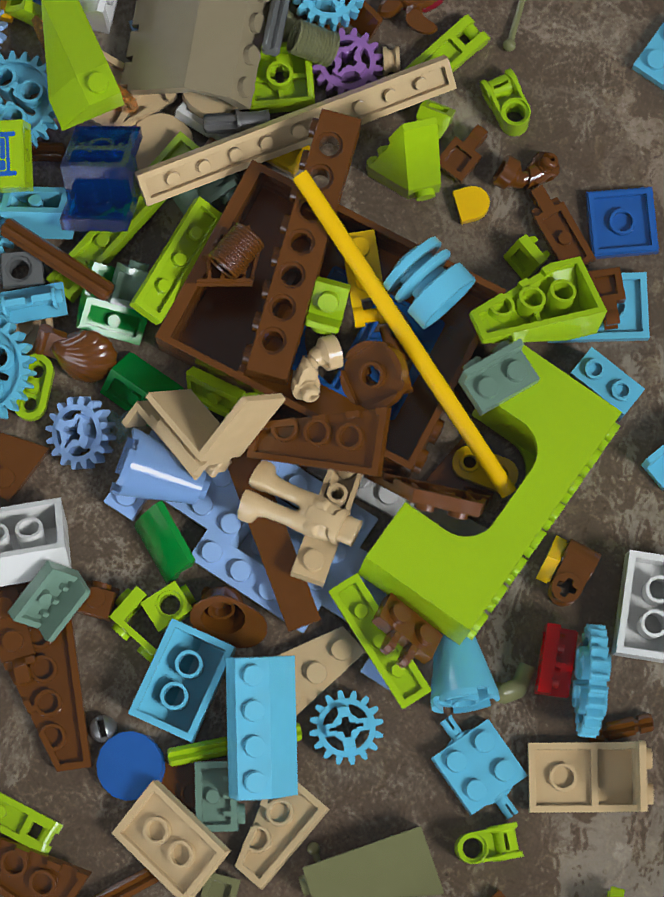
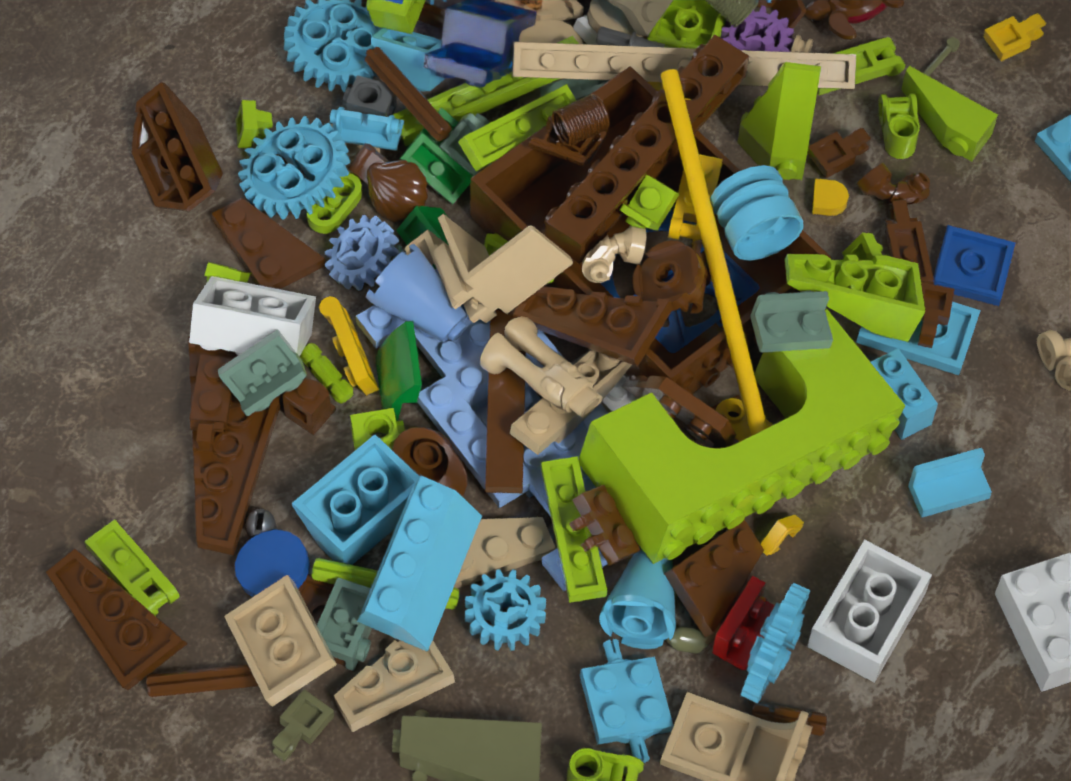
camera: 20 degrees right, 20 degrees down
(98, 560) = (327, 373): none -> lime axle
(108, 528) = (349, 345): none -> yellow plate
(128, 605) = (332, 425): lime bracket -> none
(433, 109) = (829, 115): lime tile -> none
(512, 629) = (715, 575): none -> reddish brown wing
(554, 79) = (953, 118): none -> lime slope
(575, 569) = (796, 554): reddish brown piece -> none

